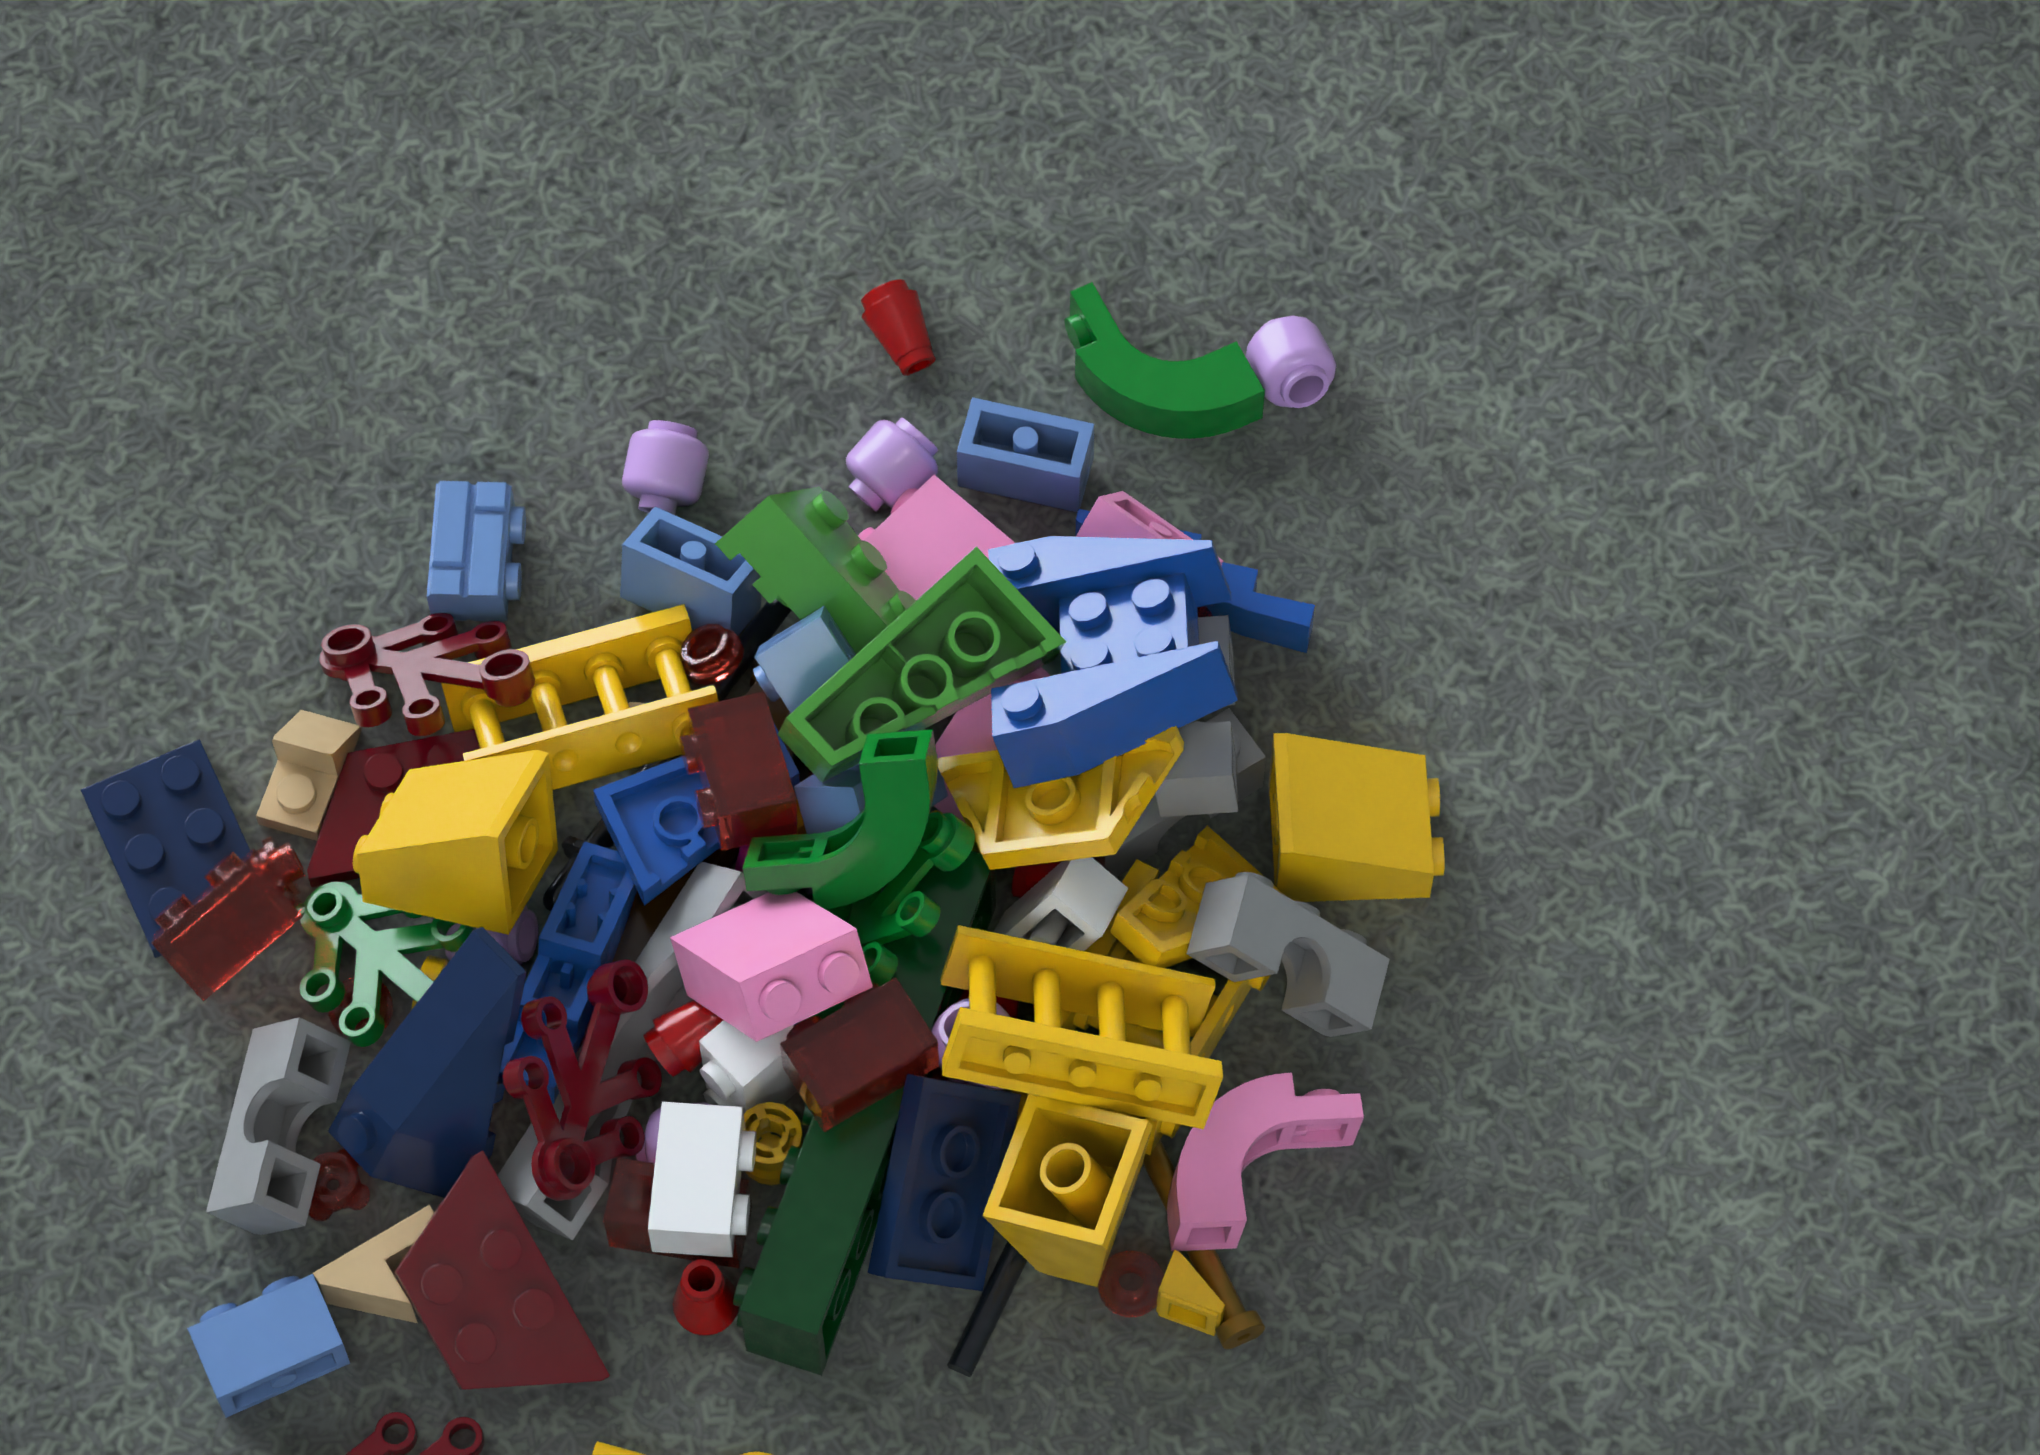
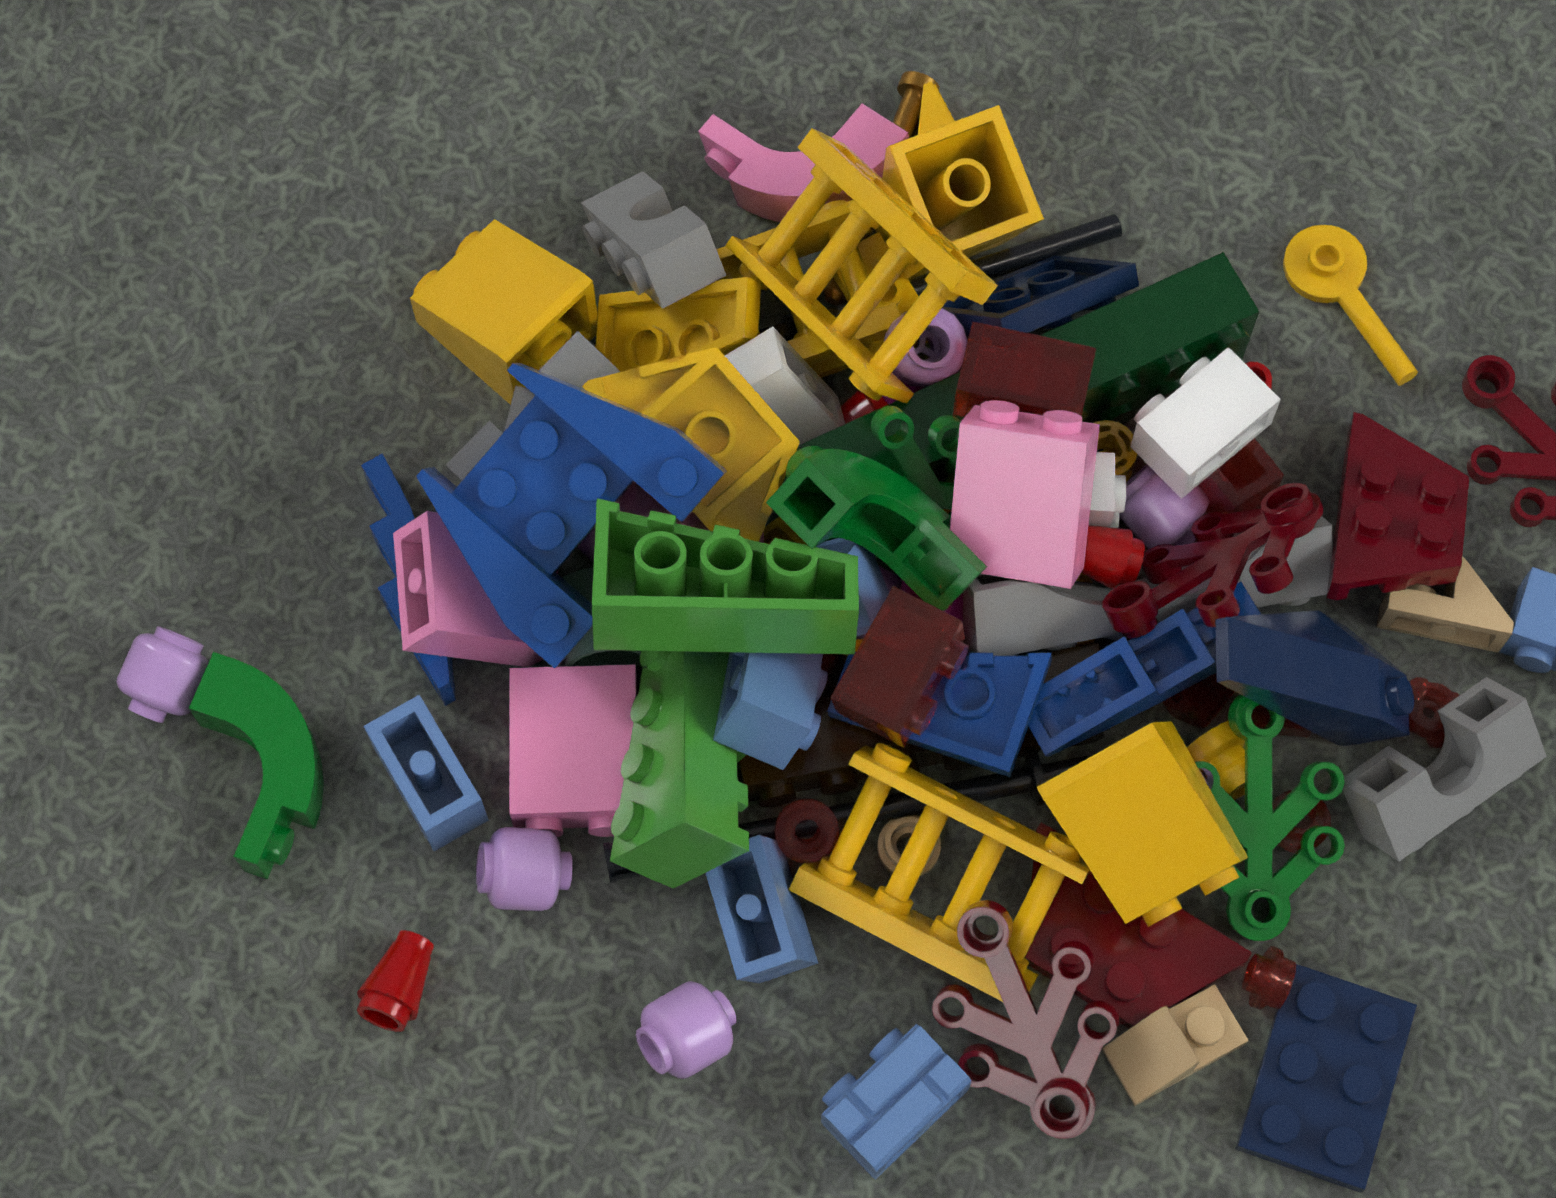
camera: 135 degrees left, 5 degrees up
(227, 922) = (1355, 948): clear red brick -> none

